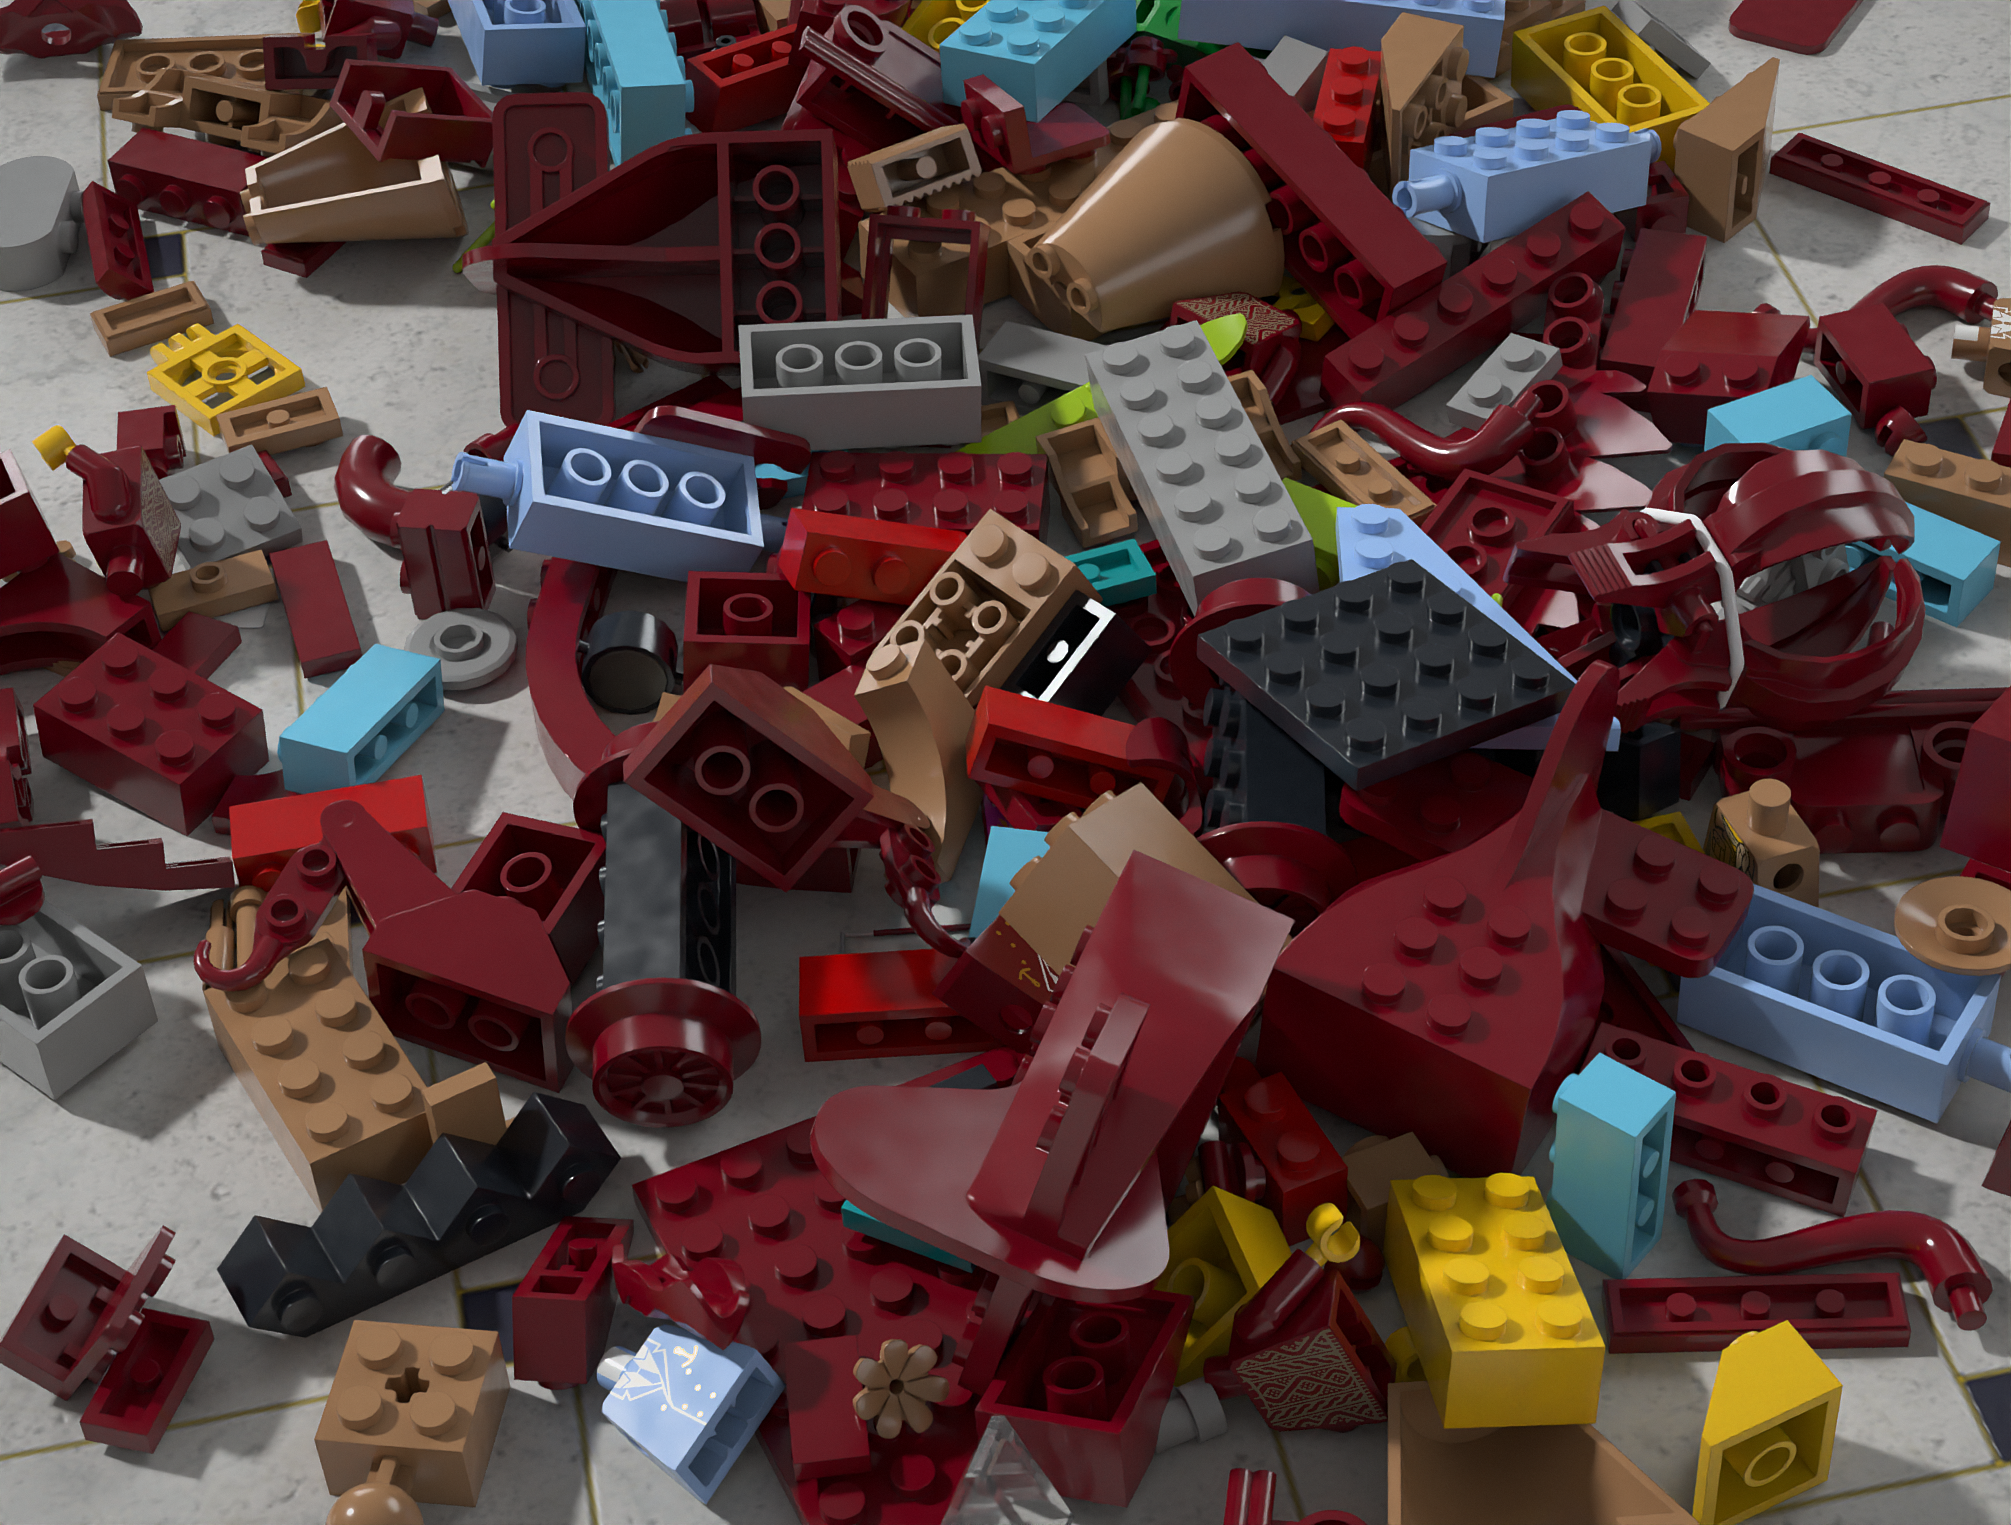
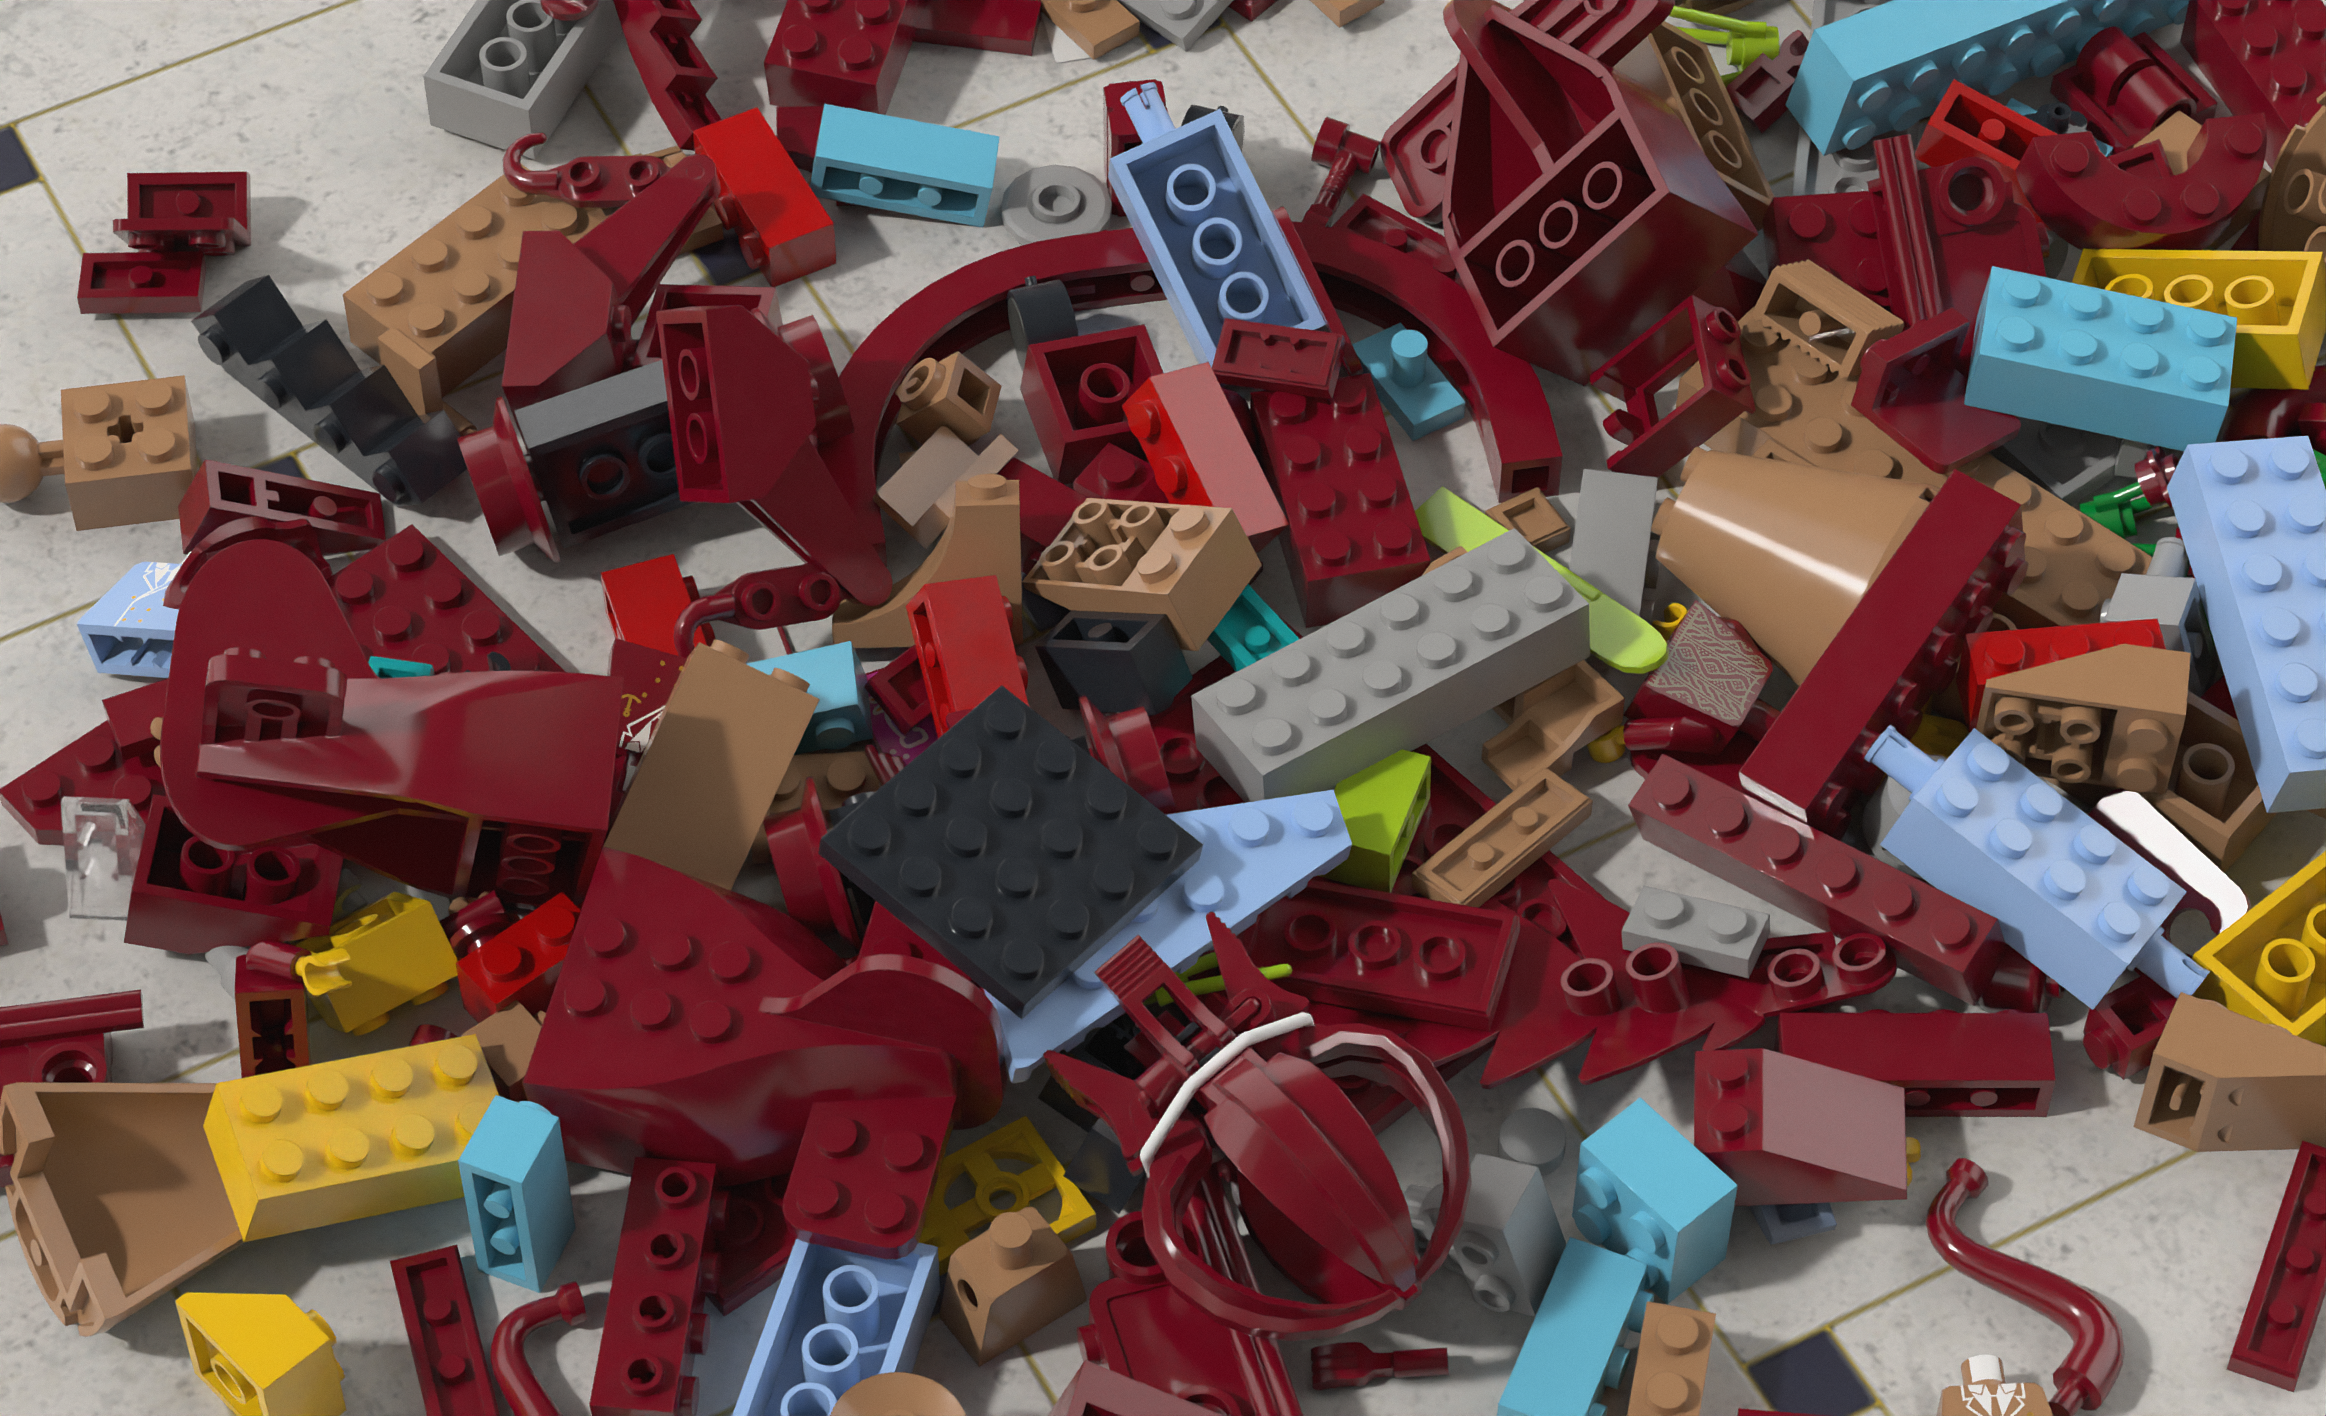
camera: 70 degrees right, 10 degrees up
(316, 609) = (1076, 89): dark red tile -> none
(367, 486) = (1242, 67): dark red cylinder -> none
(786, 480) = (1278, 358): none -> dark red plate
(864, 381) = (1445, 370): light grey brick -> none
(1484, 452) = (1544, 907): dark red animal -> none
(1873, 363) = (1888, 1285): dark red brick -> none
(1895, 427) = (1807, 1326): dark red hinge -> none

